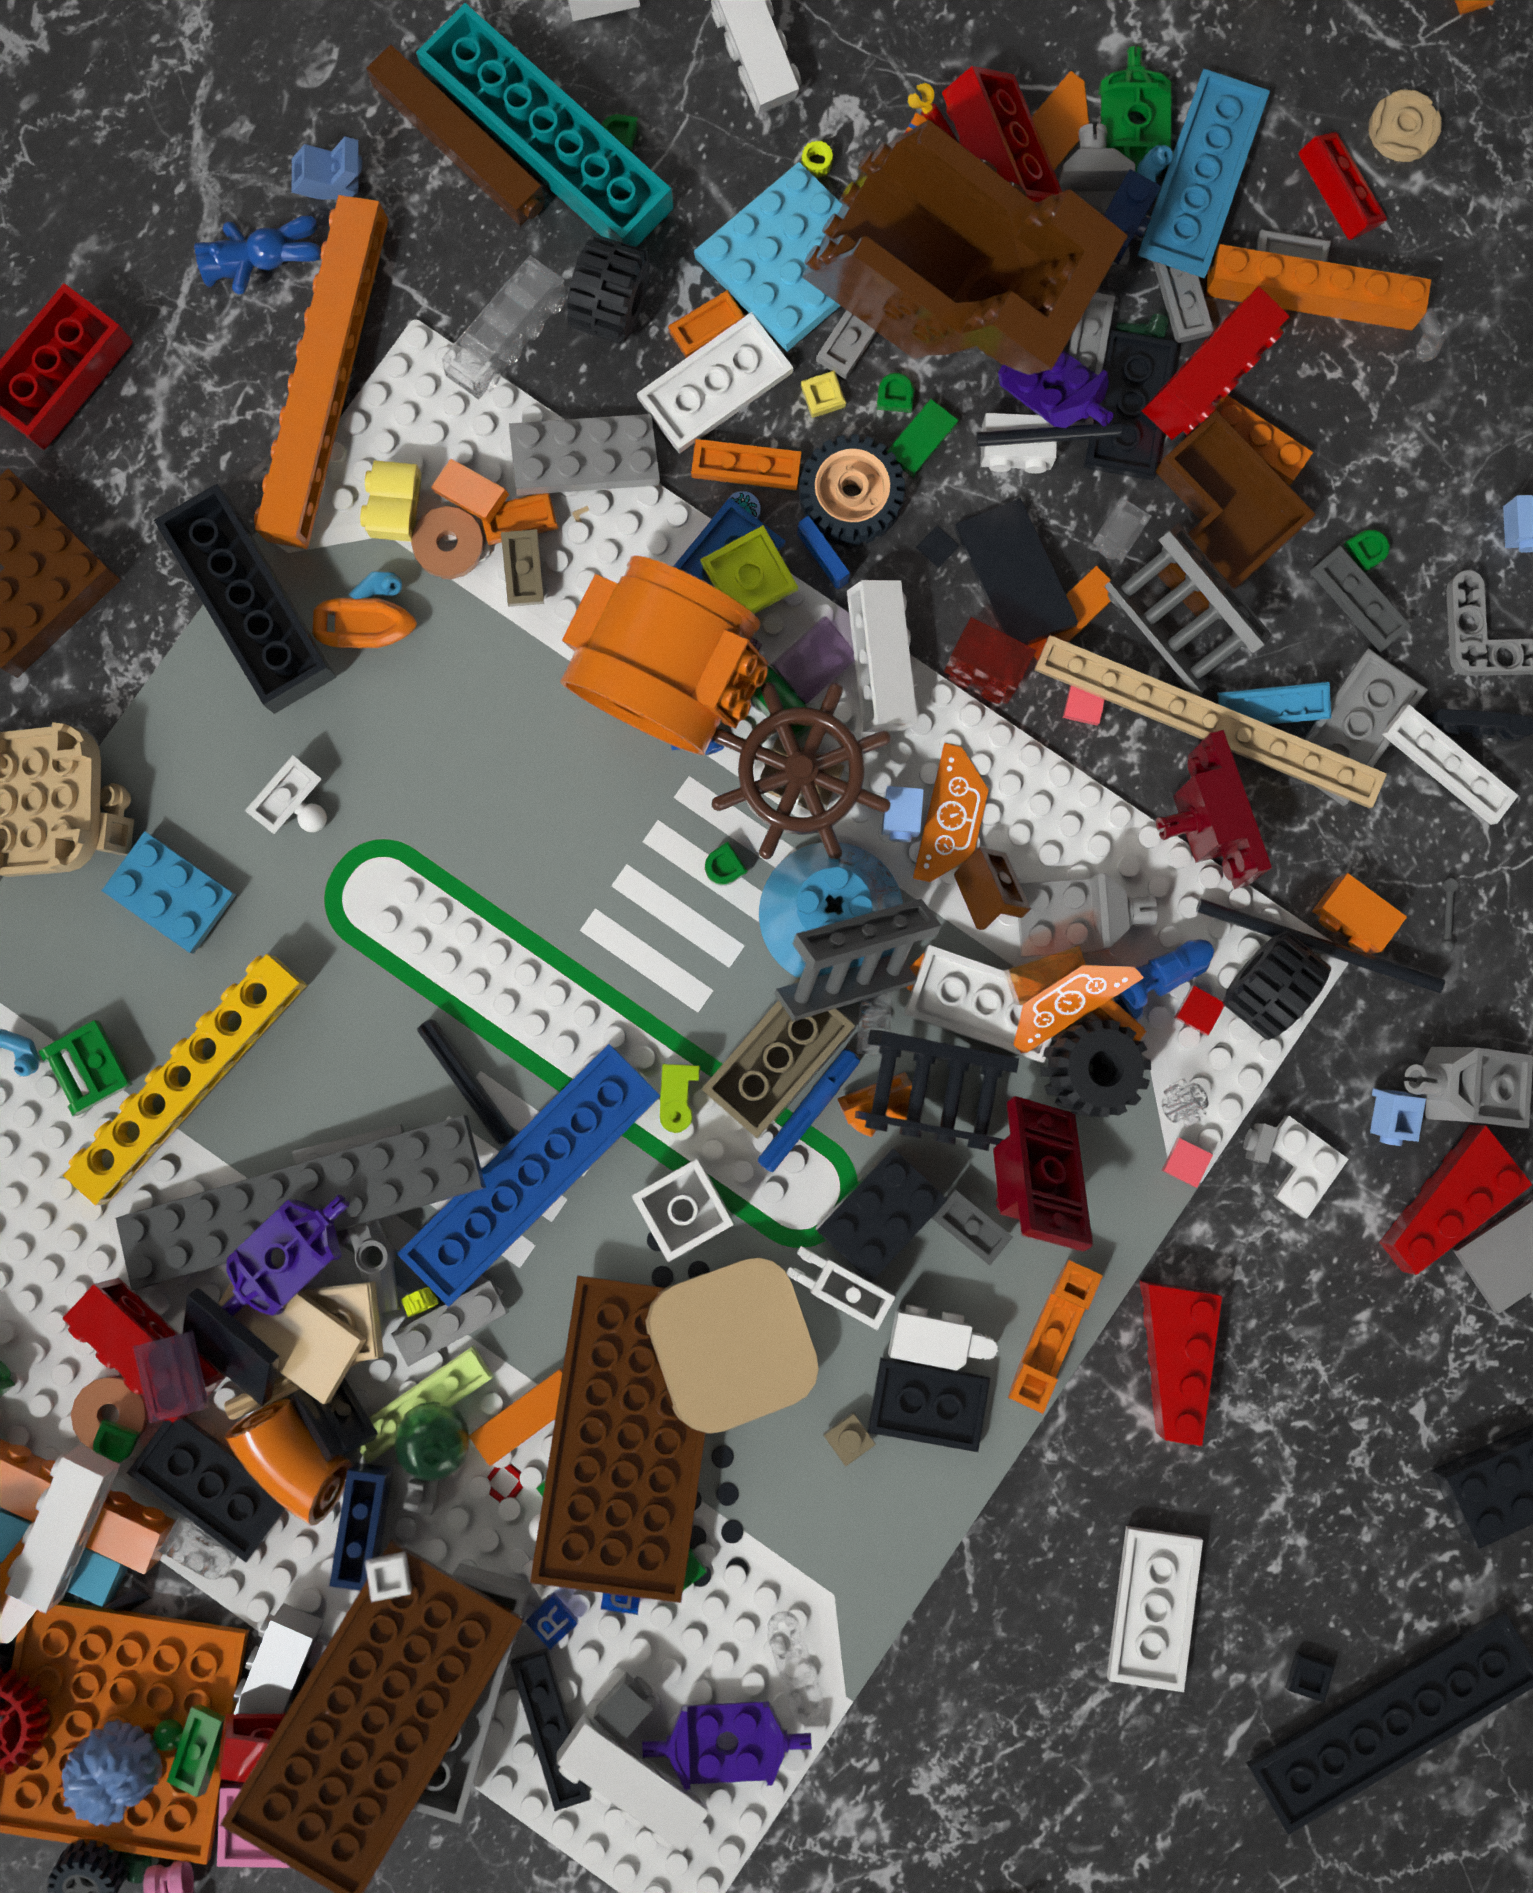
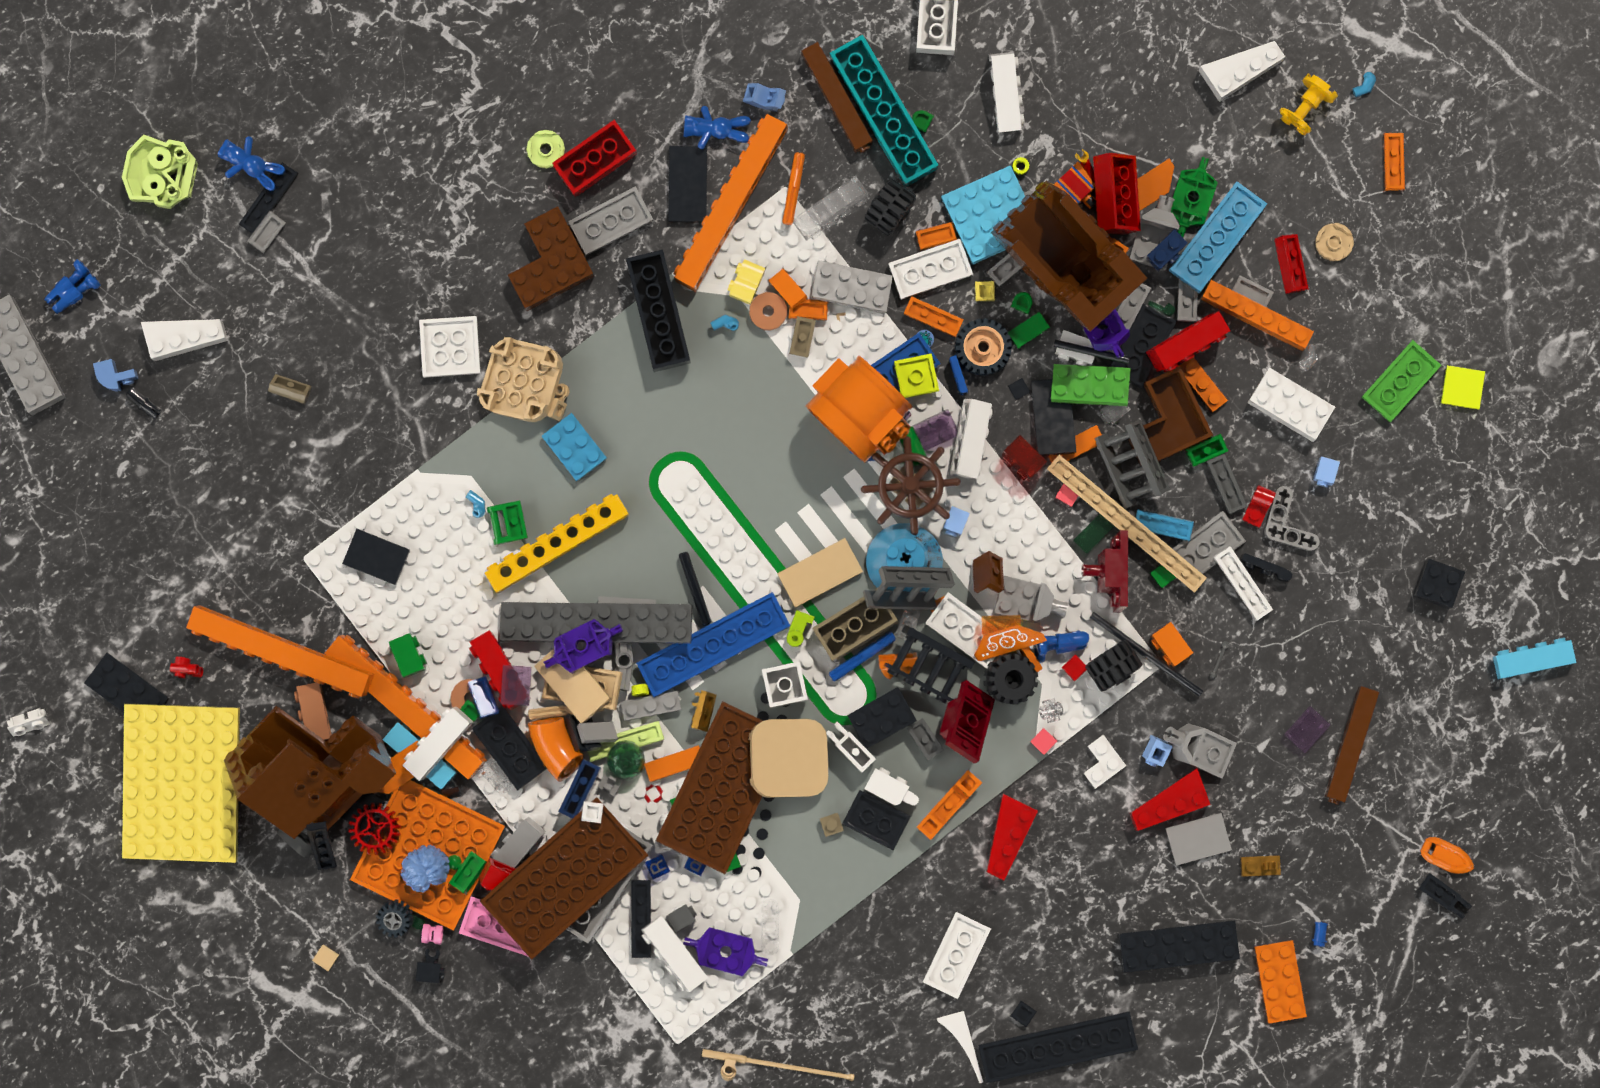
camera: 20 degrees right, 0 degrees up
(118, 471) = (610, 221): none -> light grey plate
(127, 1411) = (483, 697): none -> tile
(231, 1346) = (545, 683): black tile -> none
(237, 365) = (687, 184): none -> black tile
(286, 795) = (648, 416): white plate -> none
(360, 1409) = (597, 732): none -> light grey tile
(361, 623) = (712, 339): orange piece -> none
(427, 314) = (793, 188): none -> orange axle
(549, 1302) = (704, 710): none -> pearl gold plate
(684, 982) = (820, 572): none -> tan tile
(724, 866) = (857, 520): green tile -> none
(952, 815) = (981, 530): orange sticker -> none
(1066, 495) = (1090, 385): none -> bright green plate
(1152, 760) = (1093, 533): none -> clear green tile
(1155, 162) = (1191, 226): dark azure arm -> none
(1197, 1737) = (957, 1025): none -> white sticker
(1260, 1142) = (1083, 743): light grey plate -> none
(1299, 797) = (1162, 576): none -> green tile
(1305, 550) = (1206, 450): none -> green brick
(1368, 549) = (1240, 459): green tile -> none
(1428, 614) = (1258, 506): none -> red plate
(1429, 424) = (1291, 404): none -> white brick

